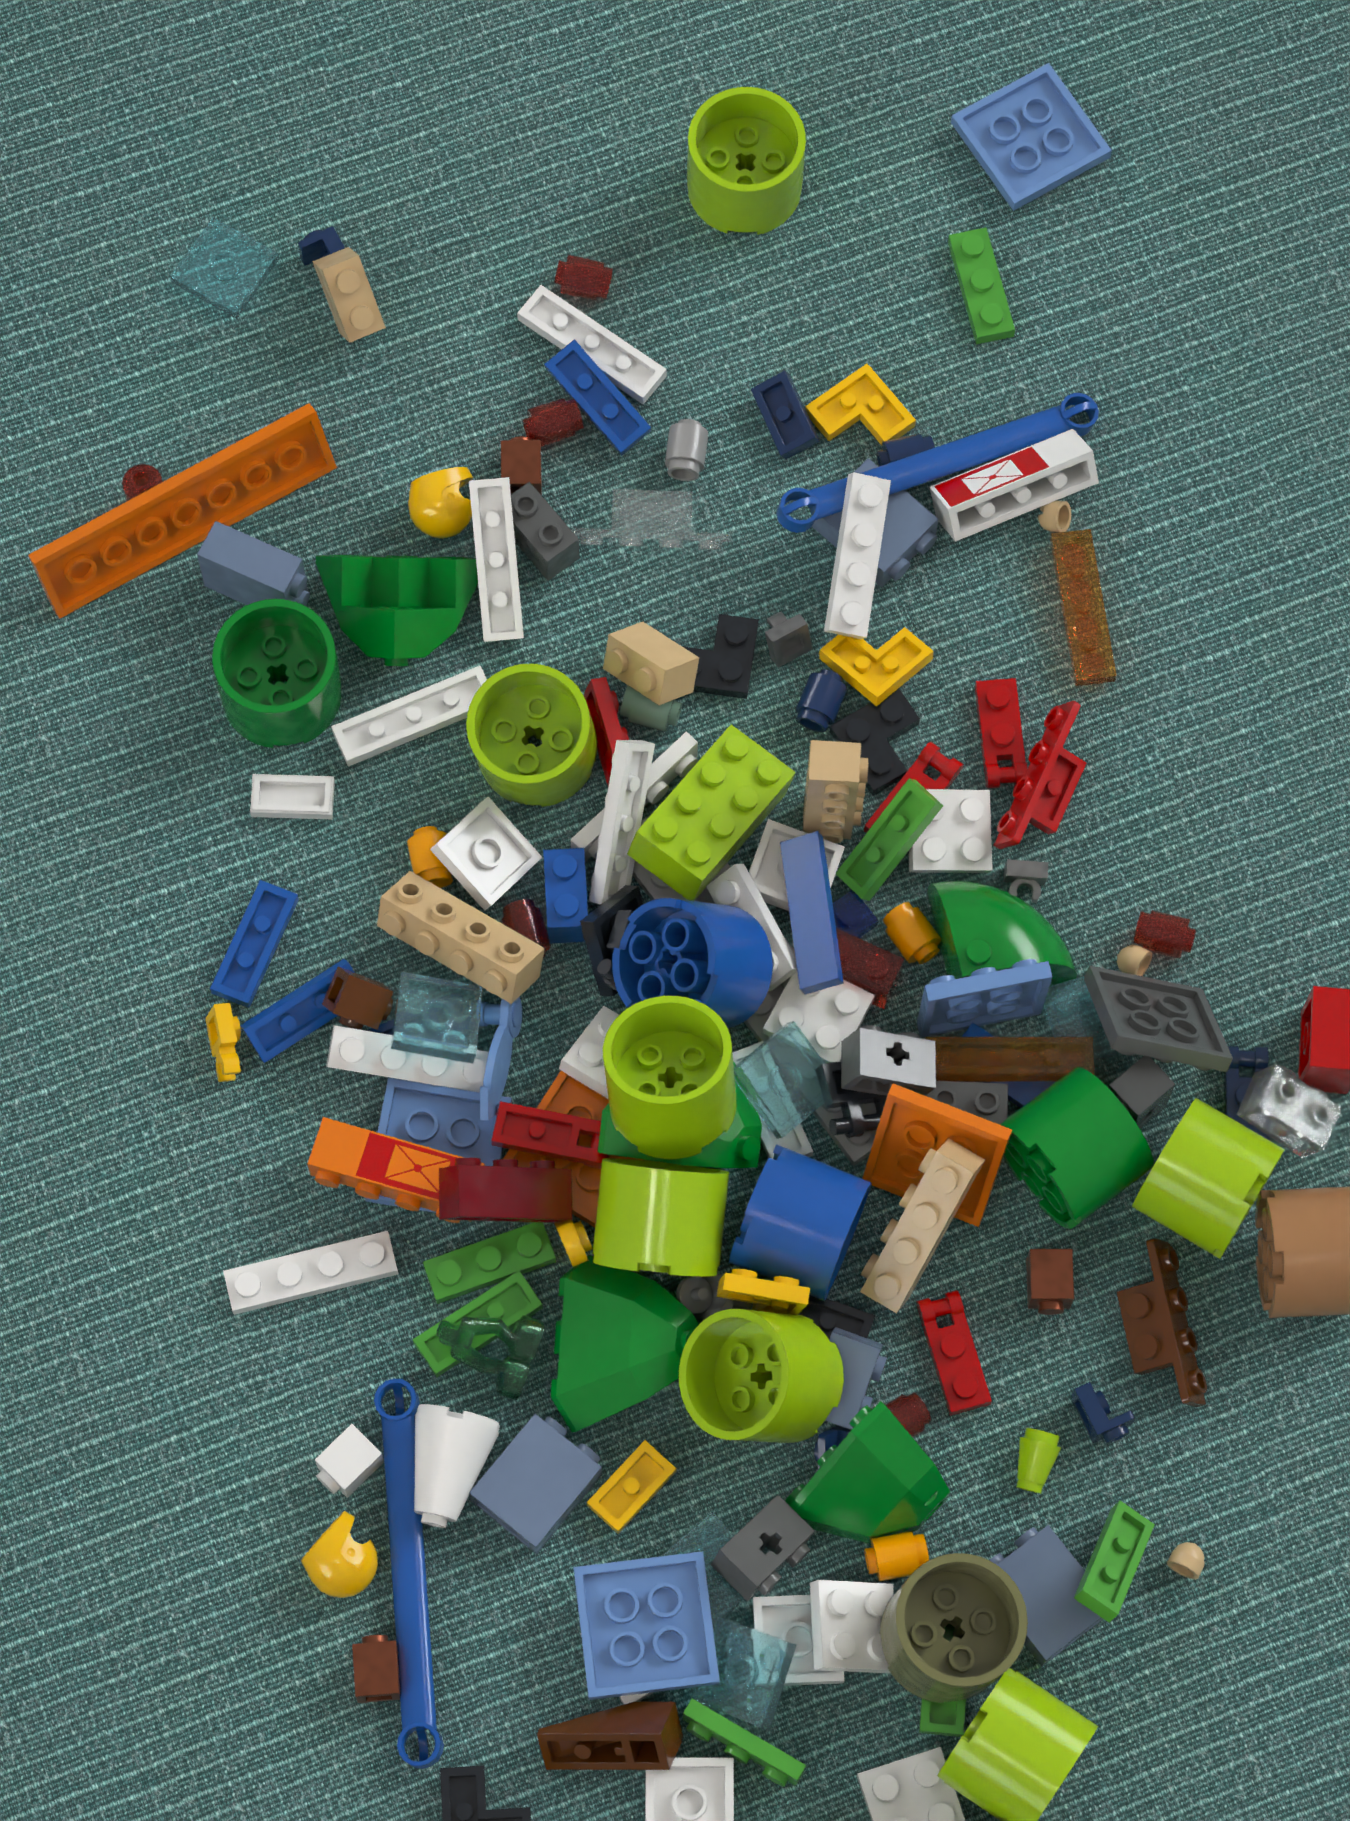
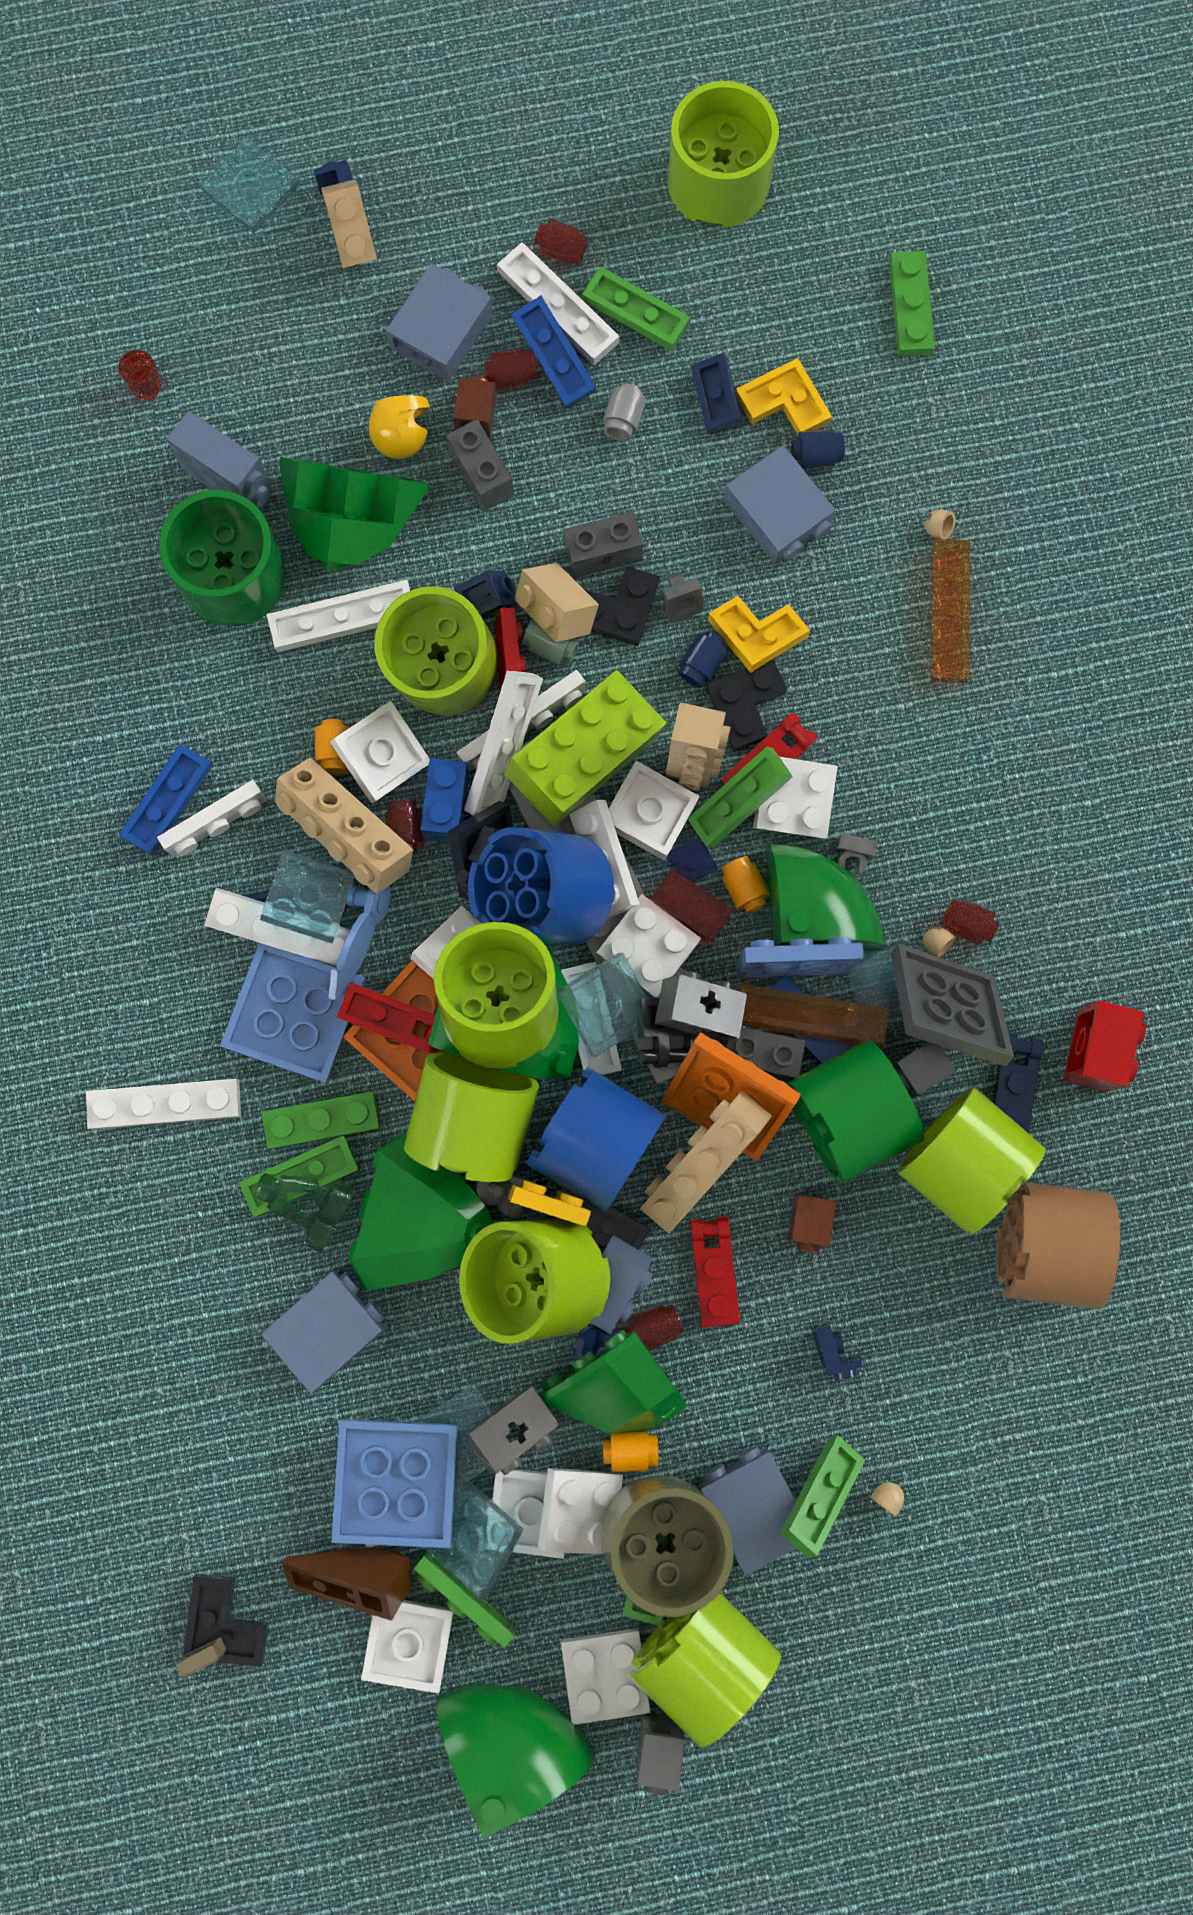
camera: 10 degrees right, 10 degrees up
(183, 510) = (156, 399): orange plate -> none
(223, 1035) = (124, 876): yellow plate -> none
(291, 1016) = (197, 868): blue plate -> none
(292, 796) = (224, 671): white tile -> none
(312, 955) = (213, 819): none -> white plate
(338, 1562) = (133, 1379): yellow helmet -> none
(348, 1462) = (163, 1283): white brick -> none
(358, 999) = (244, 867): reddish brown brick -> none
(376, 1669) = (154, 1476): copper brick -> none
(378, 1165) = (247, 1028): orange brick -> none
(408, 1576) = (198, 1395): blue piece -> none
(448, 1460) = (248, 1301): white cone -> none
(465, 383) = (440, 321): none -> sand blue brick
(496, 559) = (436, 484): white plate -> none
(505, 1191) = (336, 1070): dark red brick -> none
(574, 1241) = (393, 1118): yellow plate -> none
(576, 660) = (488, 591): none -> dark blue bracket
(631, 1486) = (408, 1347): yellow plate -> none
(651, 516) = (582, 468): clear bracket -> none
(679, 337) = (636, 308): none -> bright green plate
(689, 595) = (603, 544): none -> dark grey brick
(811, 913) = (657, 855): tile -> none
(857, 555) = (757, 532): white plate -> none
(944, 459) = (843, 458): blue piece -> none
(1000, 731) = (857, 713): red plate -> none
(1014, 484) = (909, 489): white brick -> none
(1031, 136) = (980, 173): medium blue plate -> none
(1036, 1458) = (770, 1383): lime cone -> none
(1048, 783) = (890, 768): red bracket -> none
(1159, 1326) = (900, 1280): reddish brown bracket -> none
(1289, 1110) = (1054, 1105): clear brick -> none

